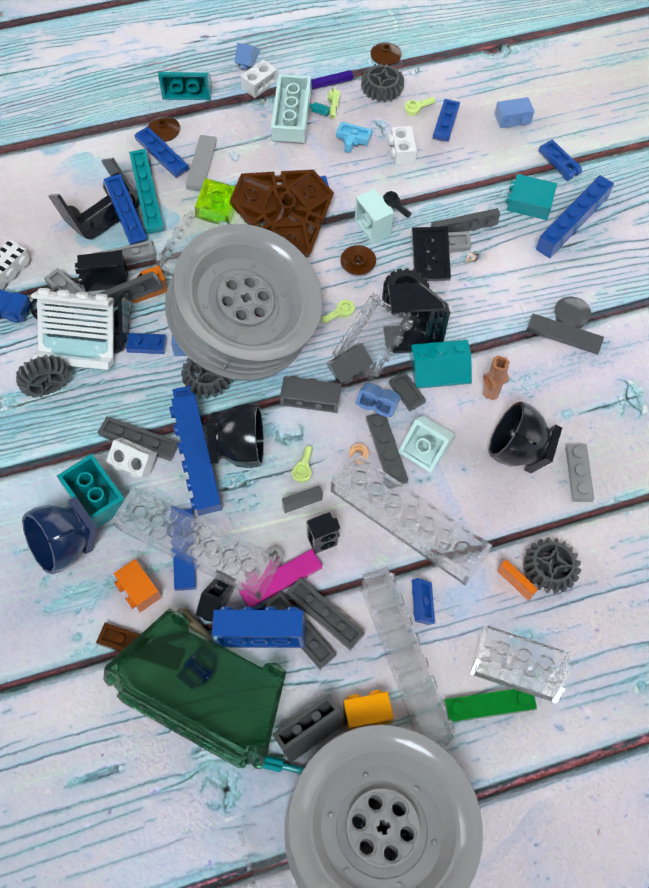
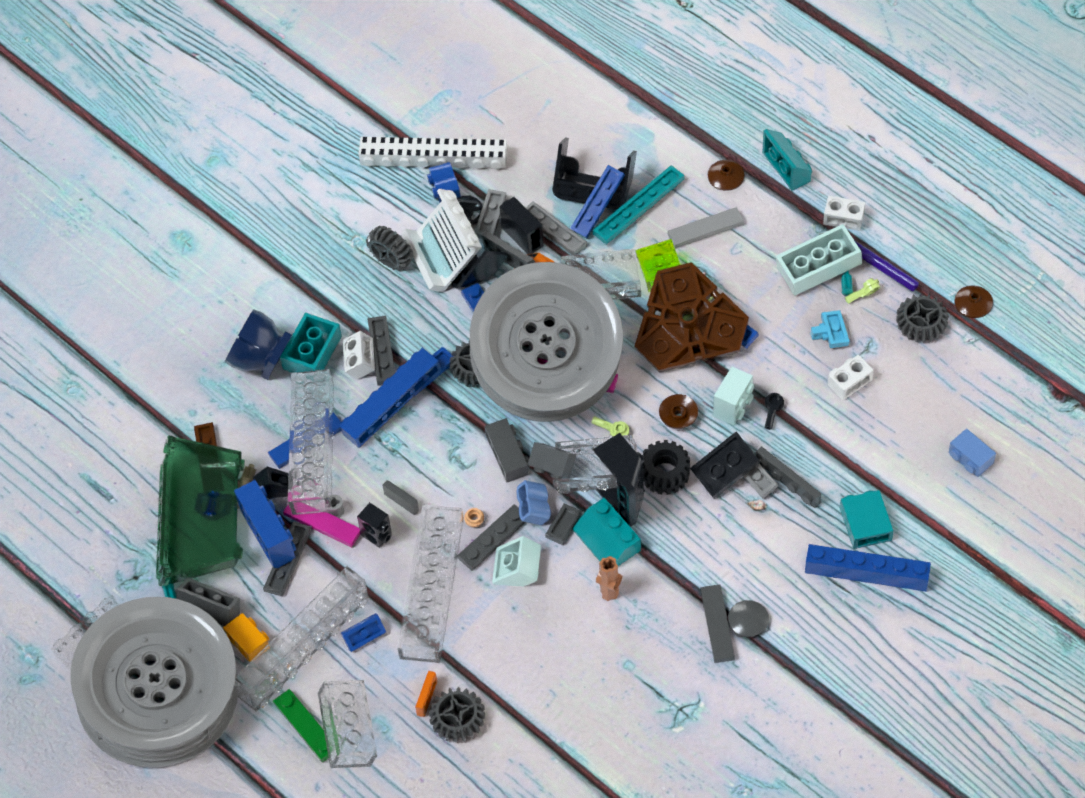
camera: 65 degrees right, 5 degrees down
(137, 586) = (253, 425): orange brick -> none
(161, 152) = (692, 189): blue plate -> none
(235, 436) = (416, 408): black plate -> none
(246, 55) = (867, 185): medium blue slope -> none
(302, 471) = (428, 484): yellowish green plate -> none
(325, 614) = (310, 567): dark grey plate -> none
(413, 107) = (913, 362): yellowish green plate -> none
(446, 120) = (915, 398): blue plate -> none
(524, 438) = (560, 630): black plate -> none
(560, 159) = (939, 523): blue plate -> none
(579, 473) = (568, 700): light grey plate -> none

